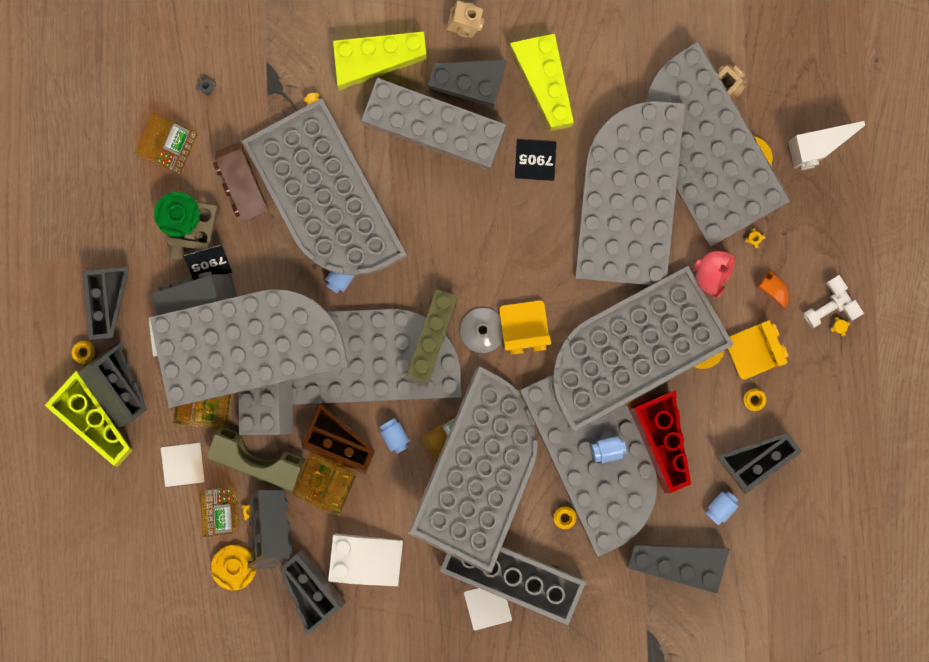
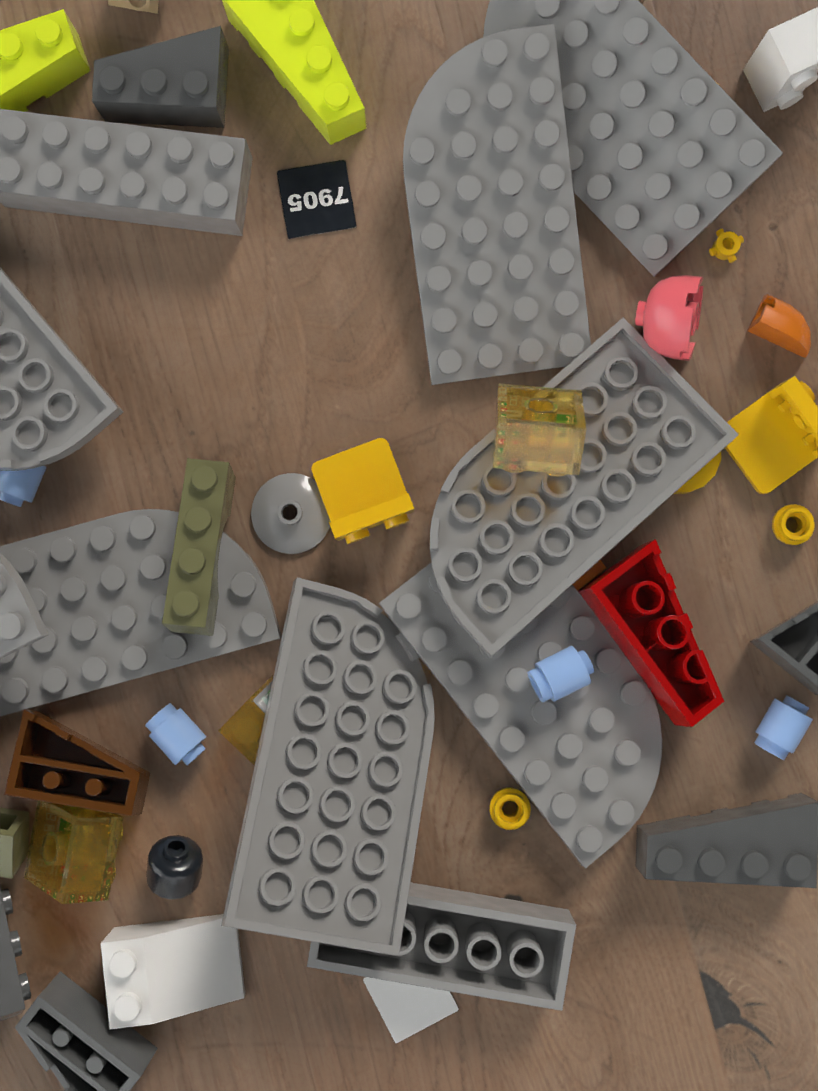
camera: 10 degrees left, 0 degrees up
(378, 506) = (174, 867): none -> black head
(626, 317) = (539, 430): none -> clear yellow slope

